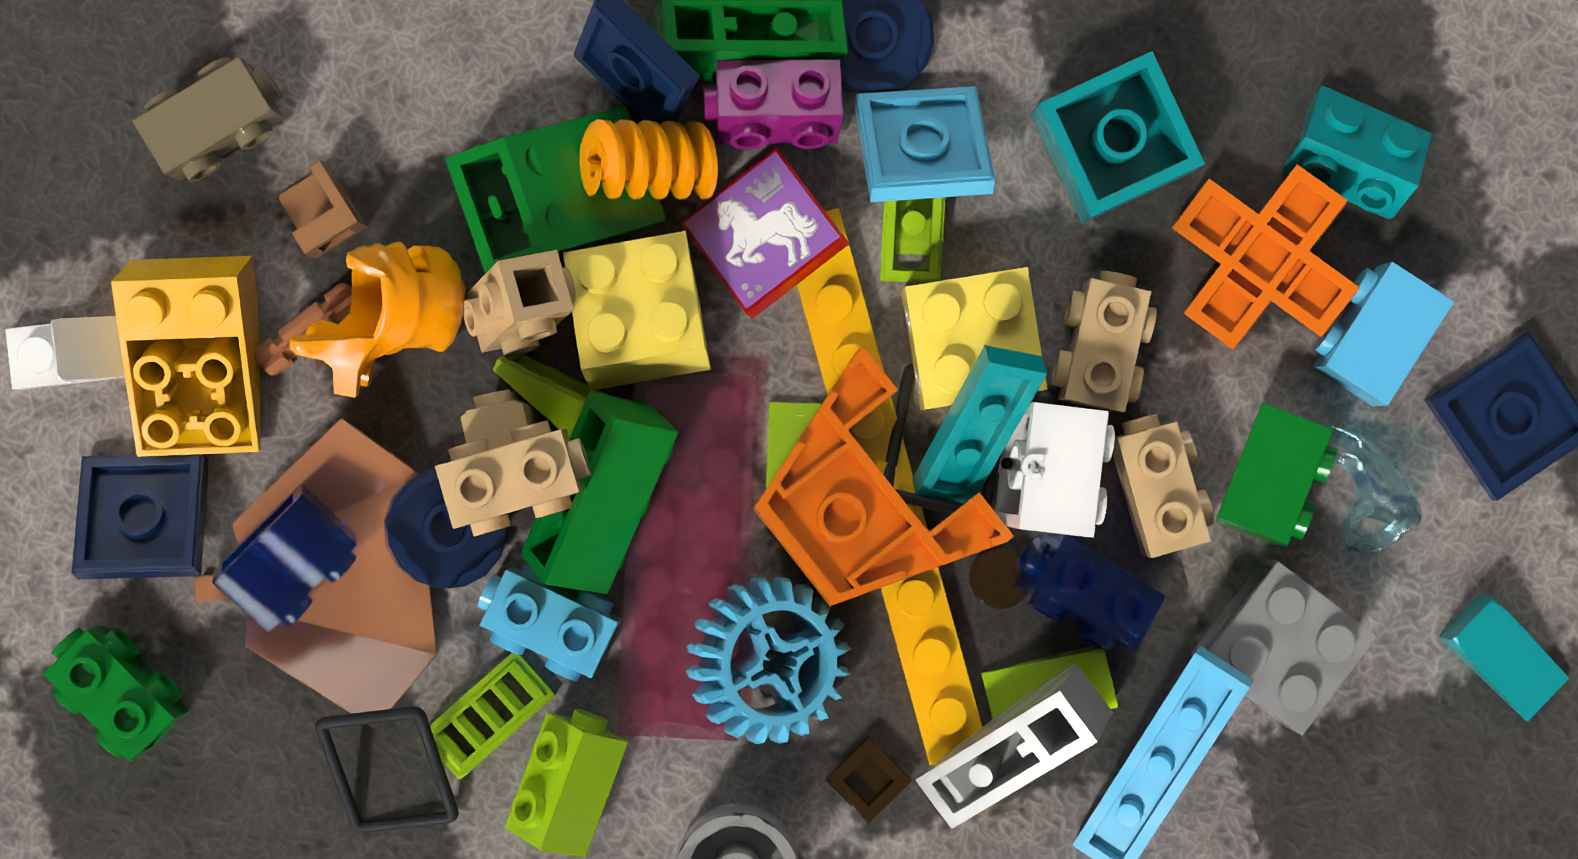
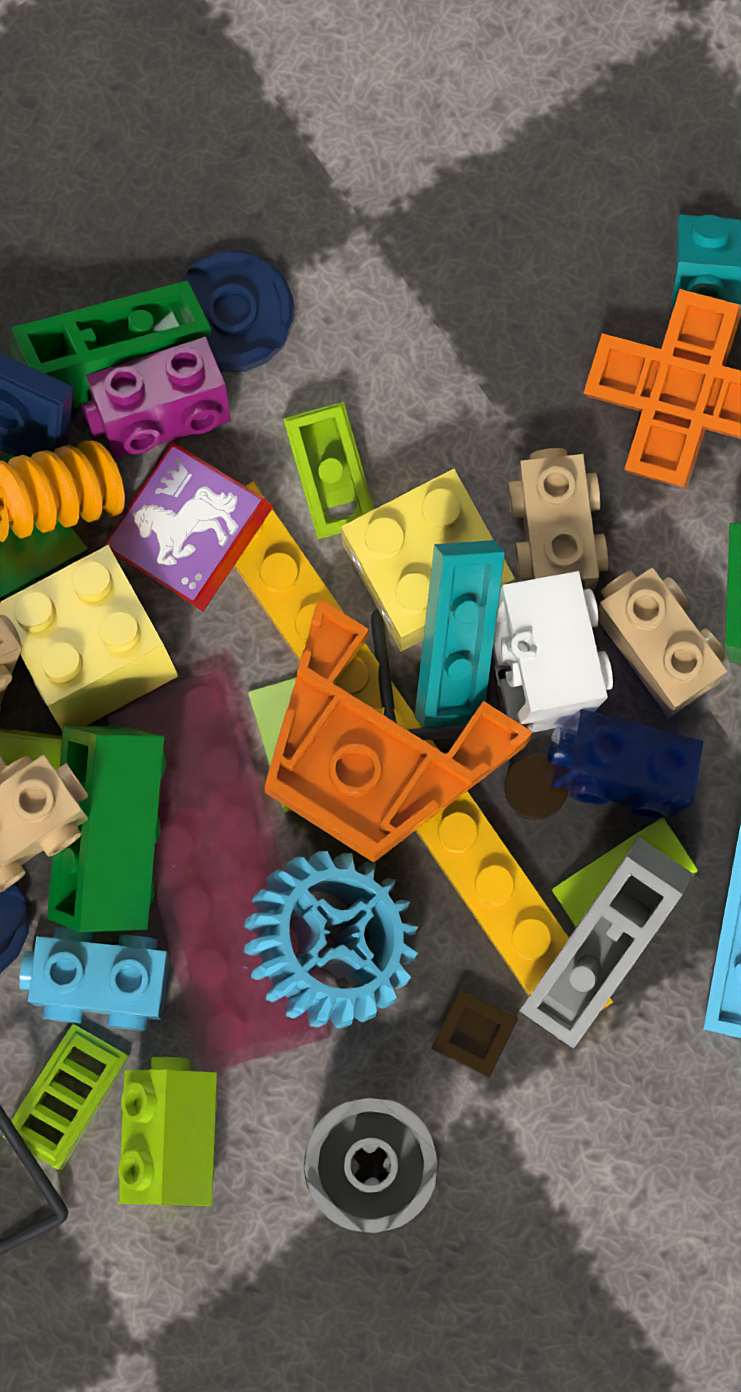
camera: 20 degrees left, 10 degrees down
(924, 144) = (314, 390): medium azure tile -> none
(1117, 137) = (498, 323): teal brick -> none

